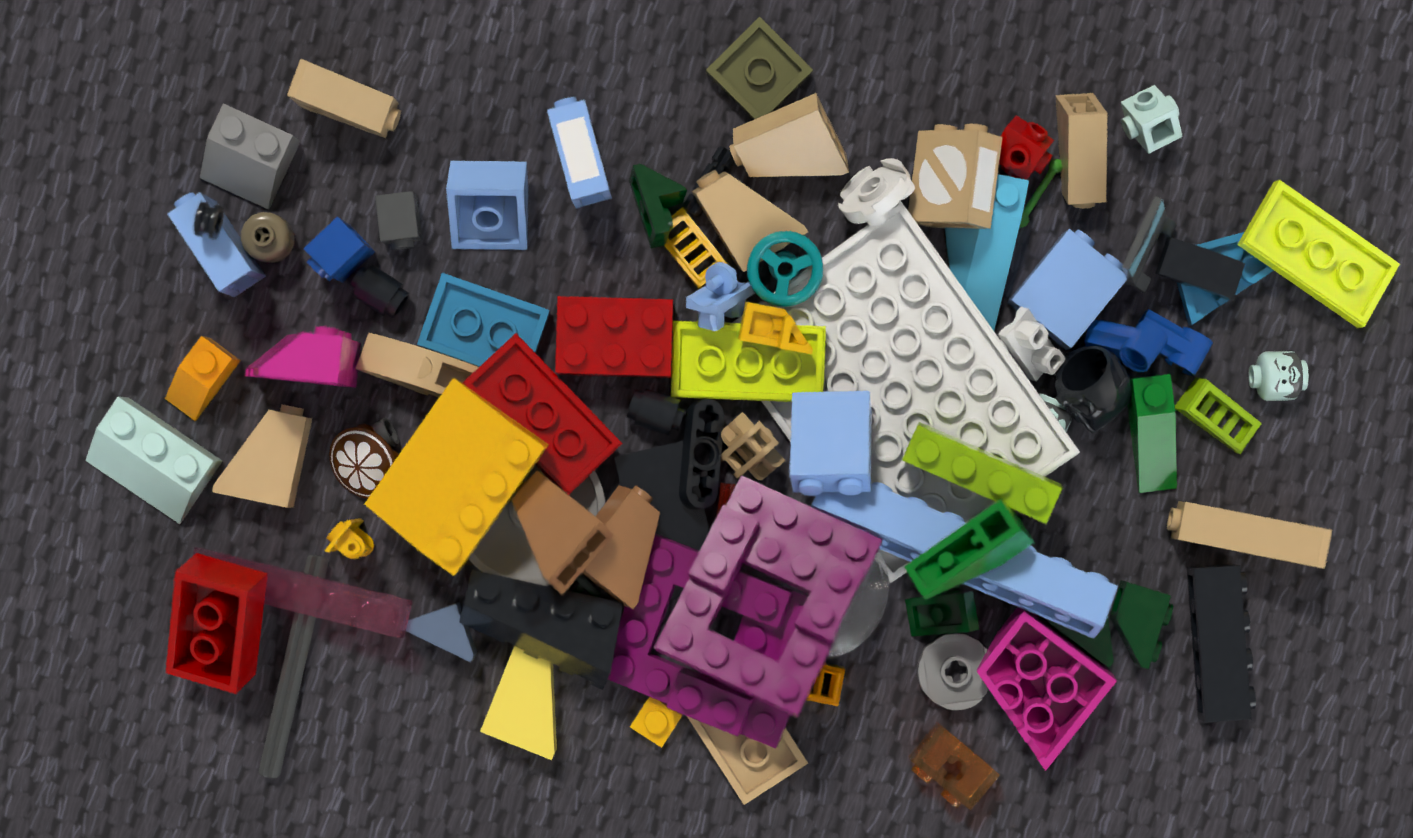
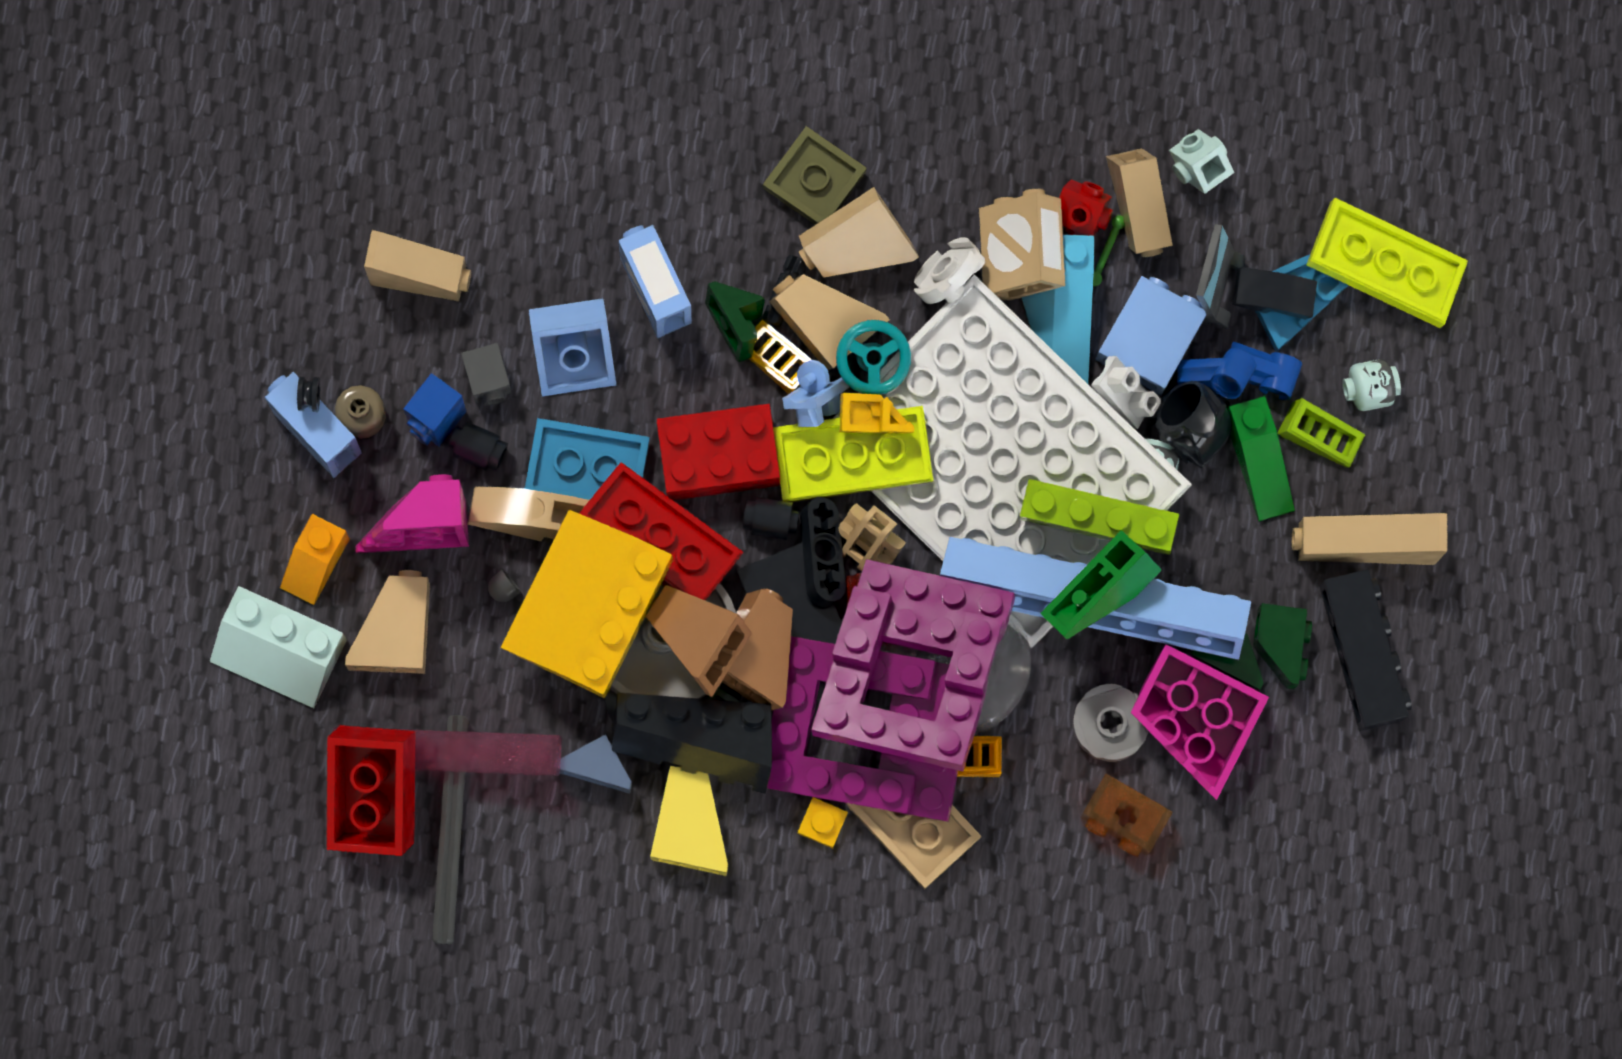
camera: 20 degrees left, 10 degrees down
(247, 156) = (327, 337): light grey slope -> none
(350, 539) = (490, 689): yellow hinge -> none
(360, 459) = (486, 612): dish -> none
(831, 442) = (948, 512): light blue brick -> none
(942, 613) = (1087, 666): dark green slope -> none

